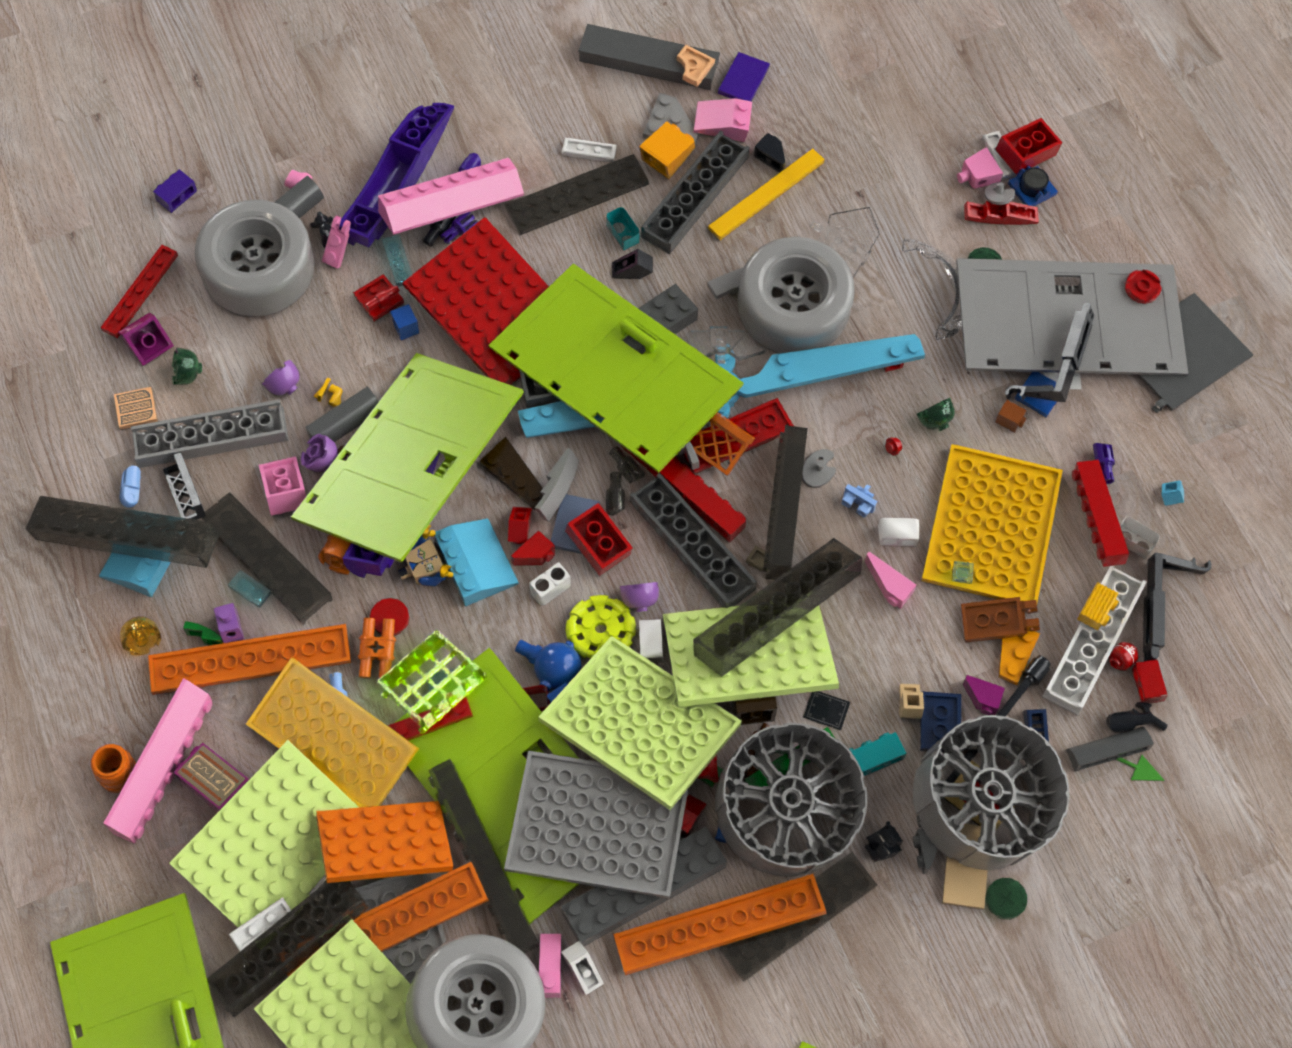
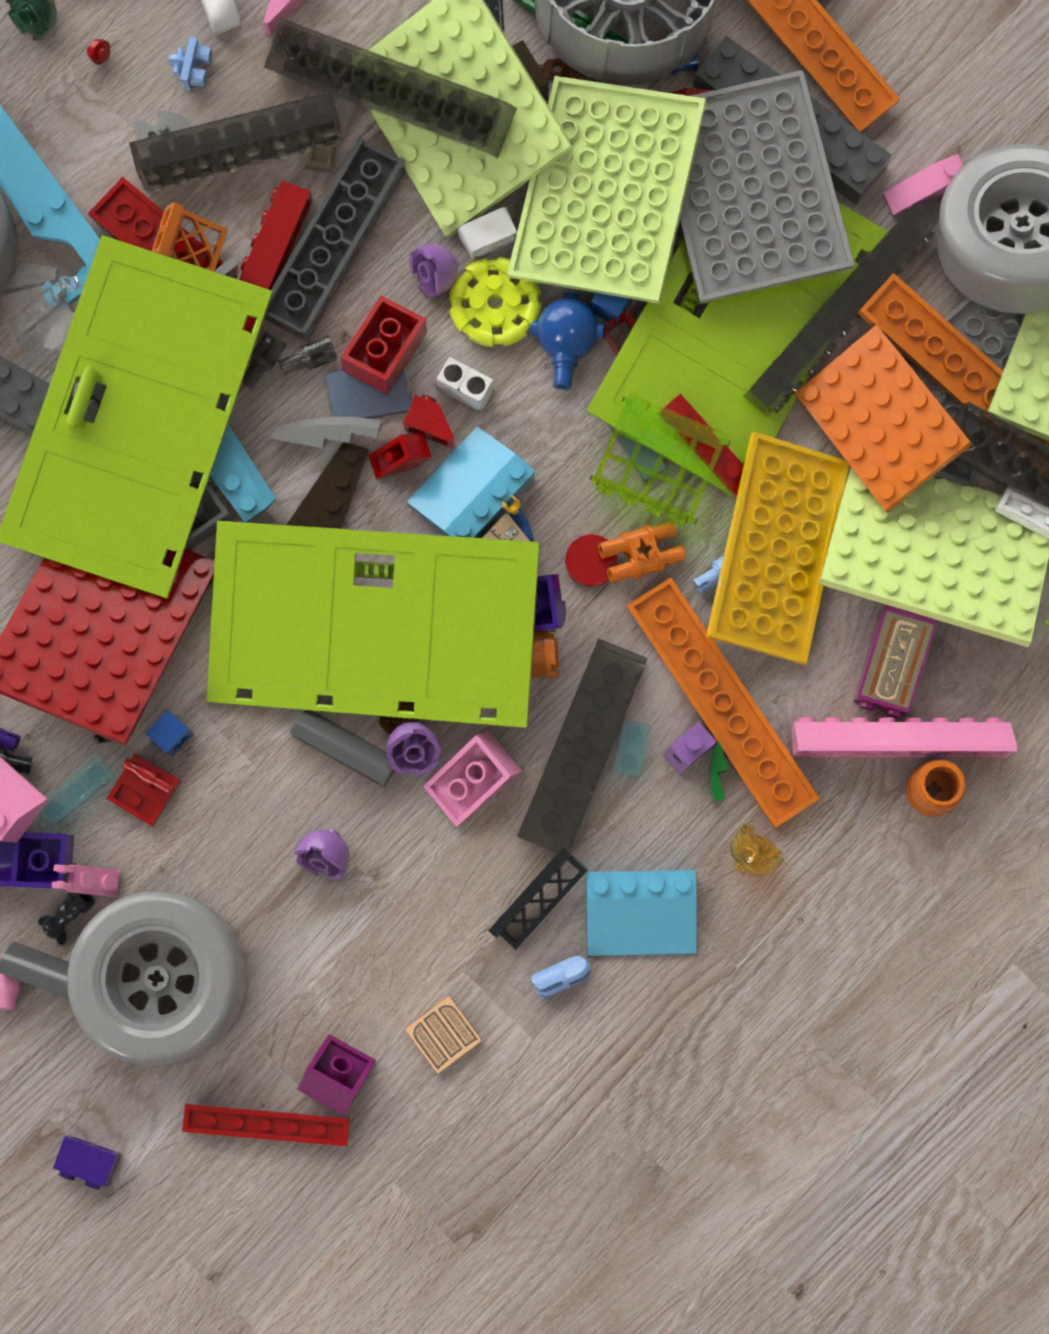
camera: 110 degrees left, 15 degrees up
(123, 531) = (637, 938): clear smoke brick -> none
(185, 366) = (359, 994): clear green cylinder -> none
(211, 434) = (441, 913): light grey tile -> none
(335, 399) = (306, 793): yellow piece -> none
(582, 967) = (911, 151): white slope -> none

